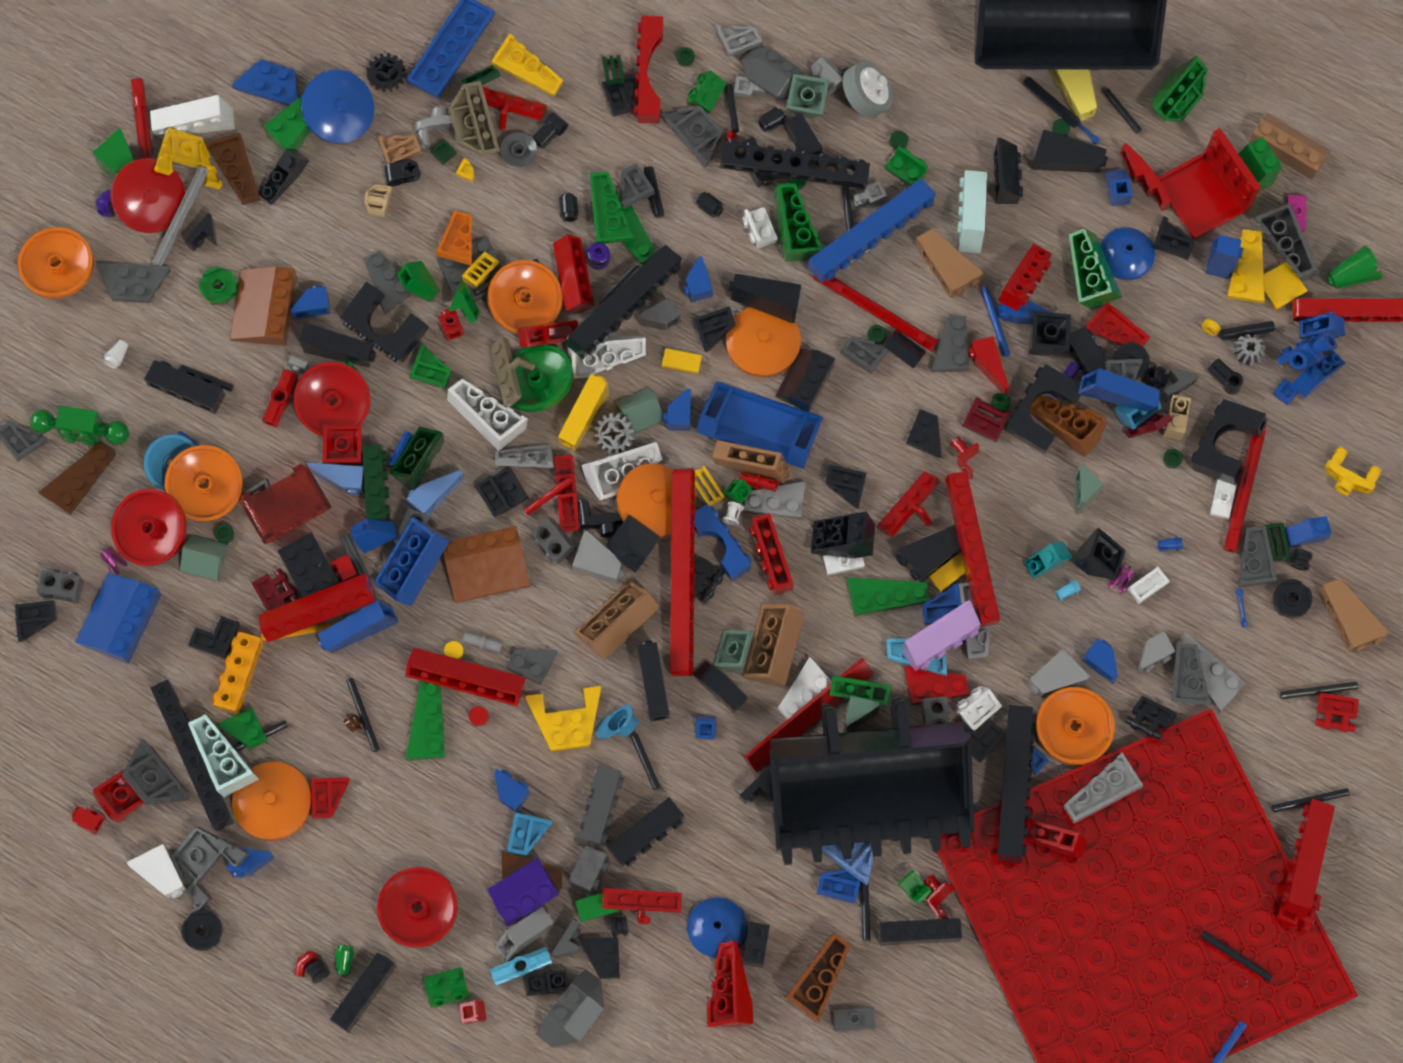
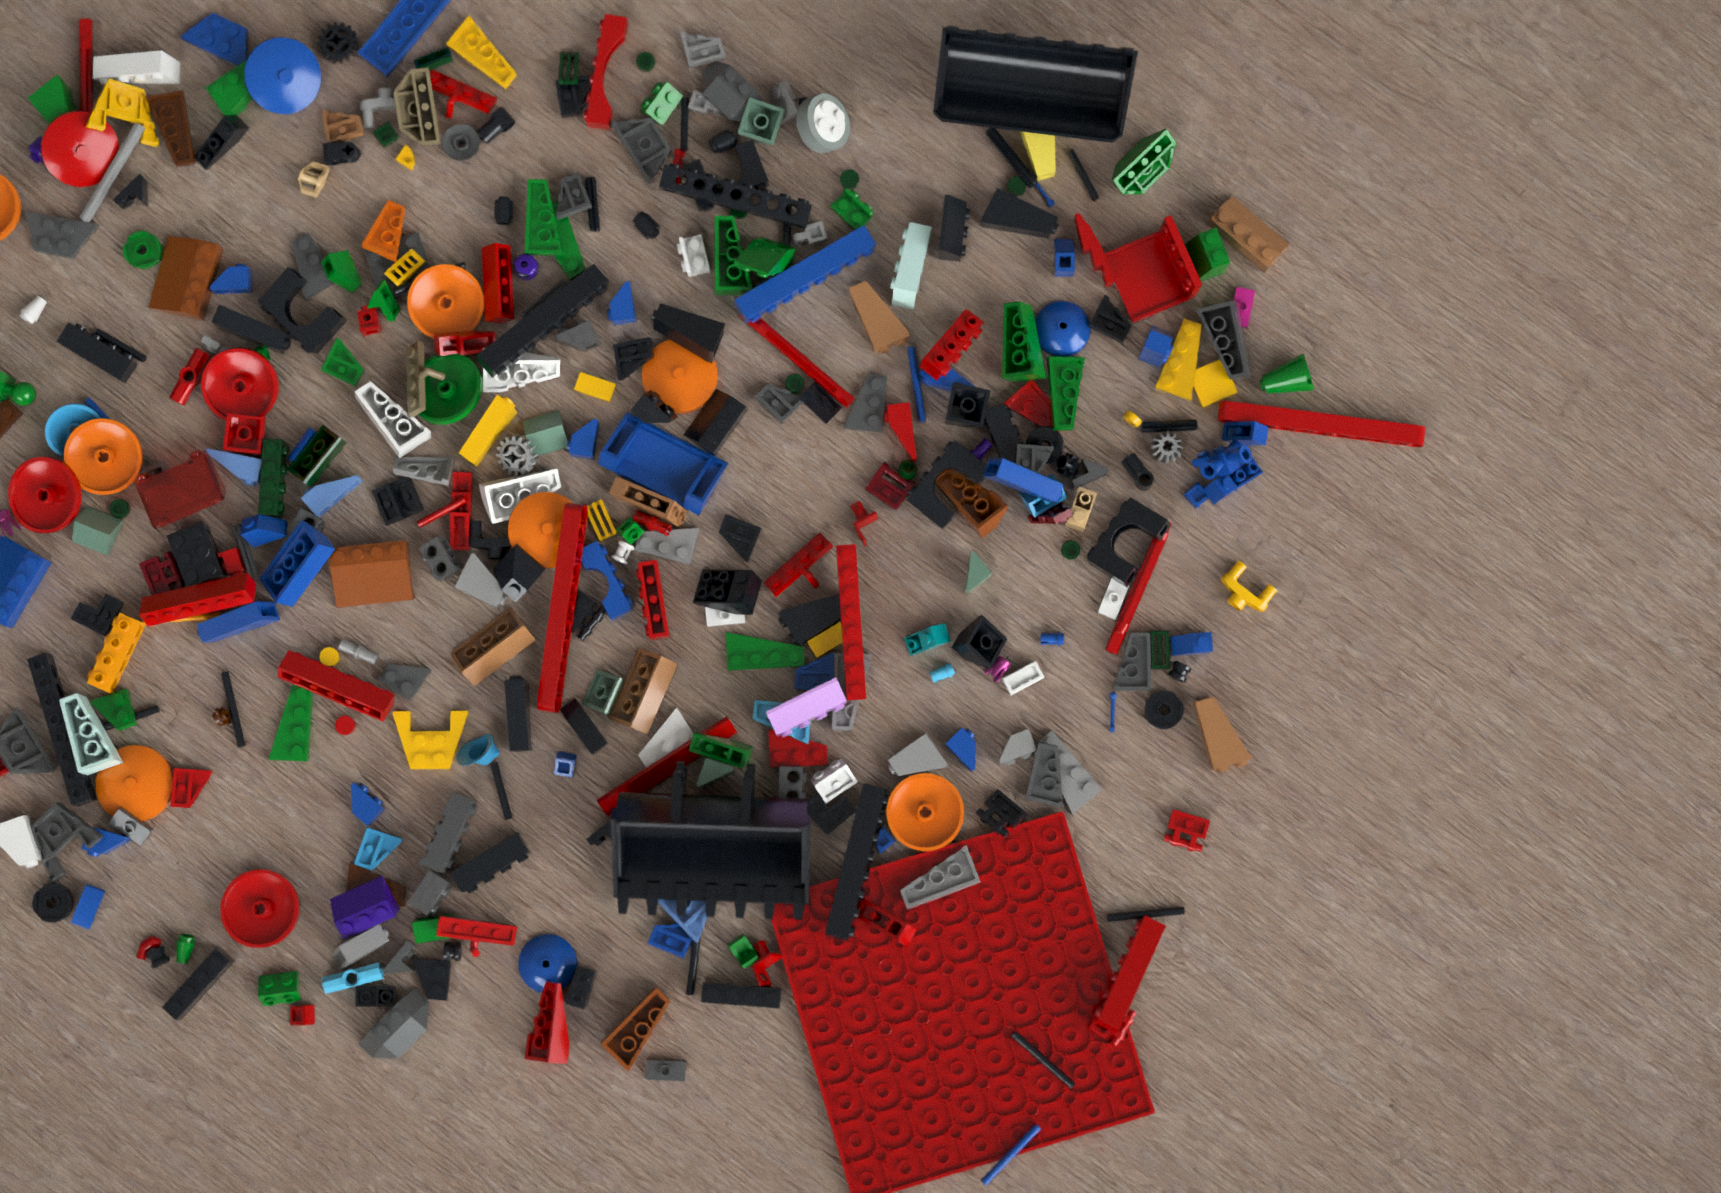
camera: 10 degrees right, 10 degrees up
(239, 929) = (88, 906): none -> blue slope
(273, 842) = (130, 825): none -> plate
(742, 373) = (653, 410): none -> black slope
(833, 217) = (766, 257): none -> green slope
(925, 434) = (827, 493): black wing -> none
(1139, 302) = (1064, 384): none -> green wing
(1316, 690) = (1173, 805): pearl dark grey bar -> none

